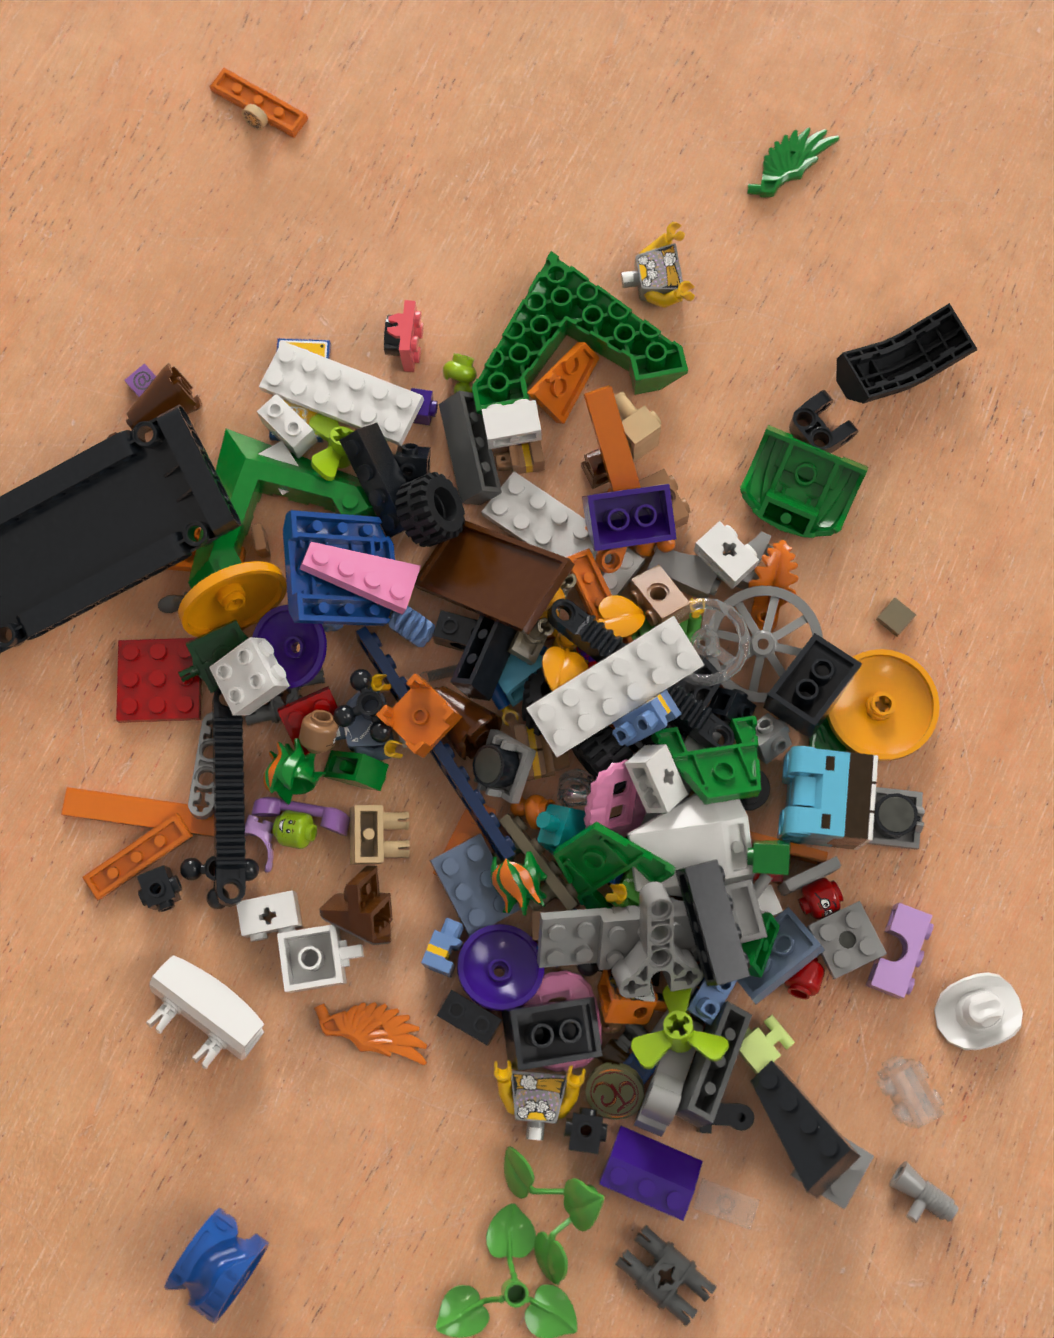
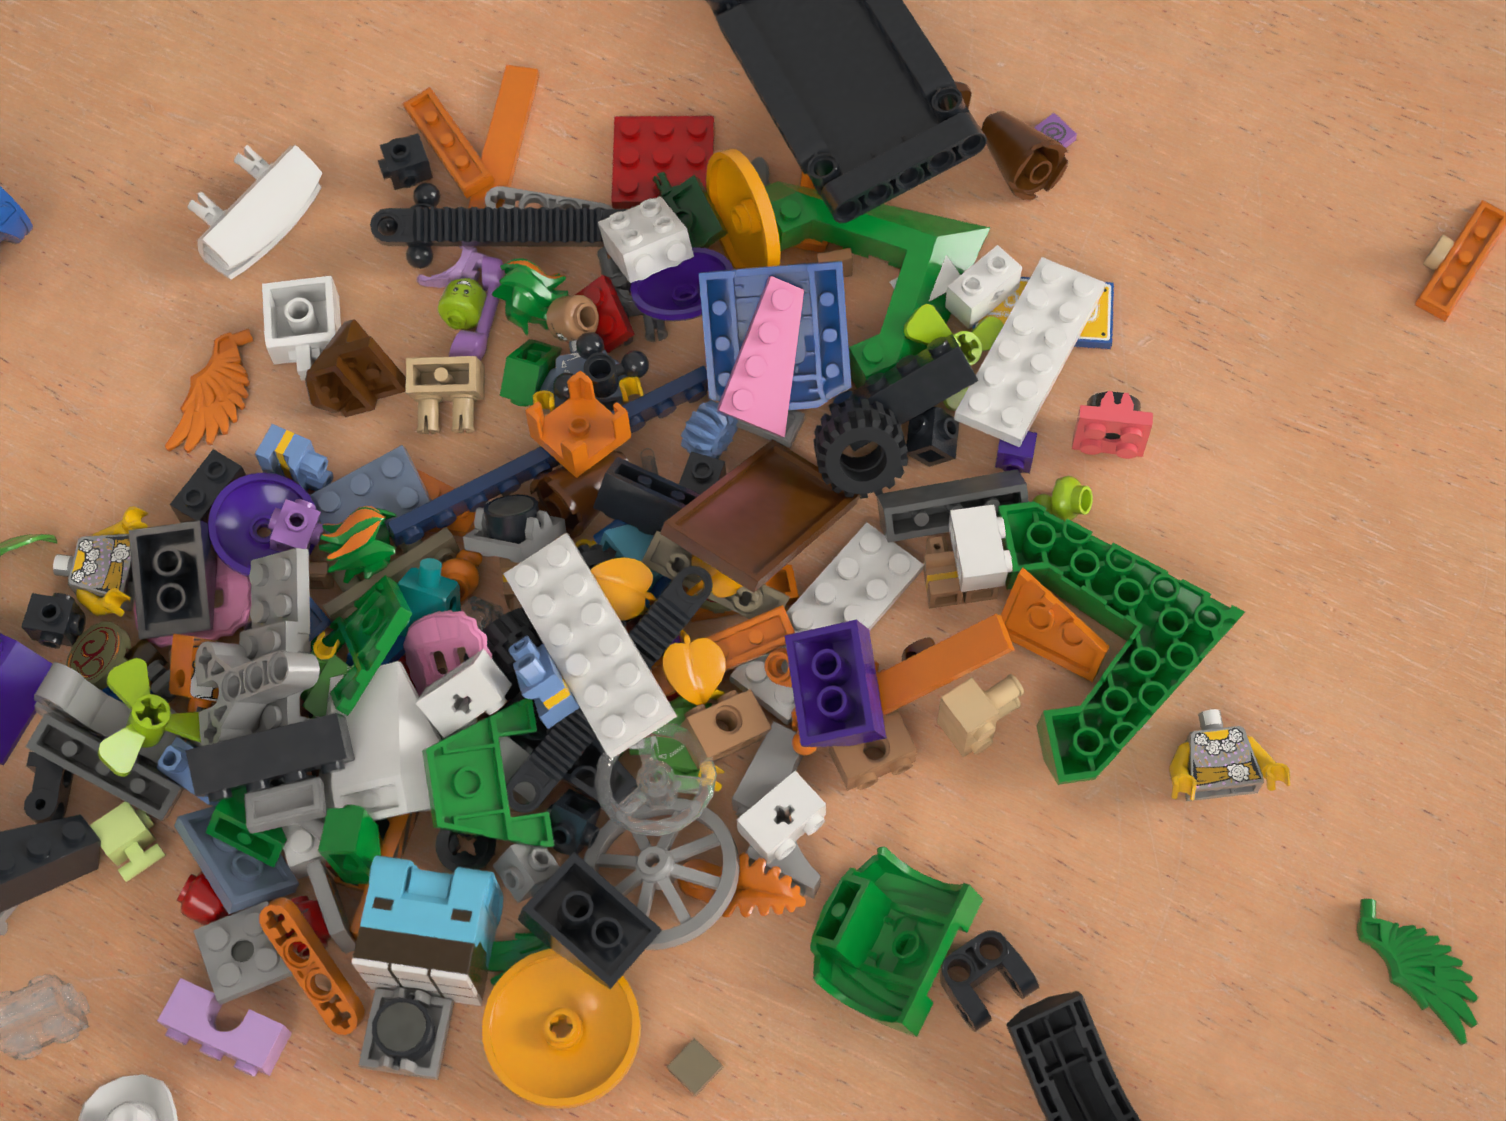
camera: 90 degrees right, 10 degrees down
(252, 914) = (362, 278): white brick -> none
(508, 935) = (295, 526): none -> medium lavender brick
(857, 891) = (317, 963): none -> orange beam

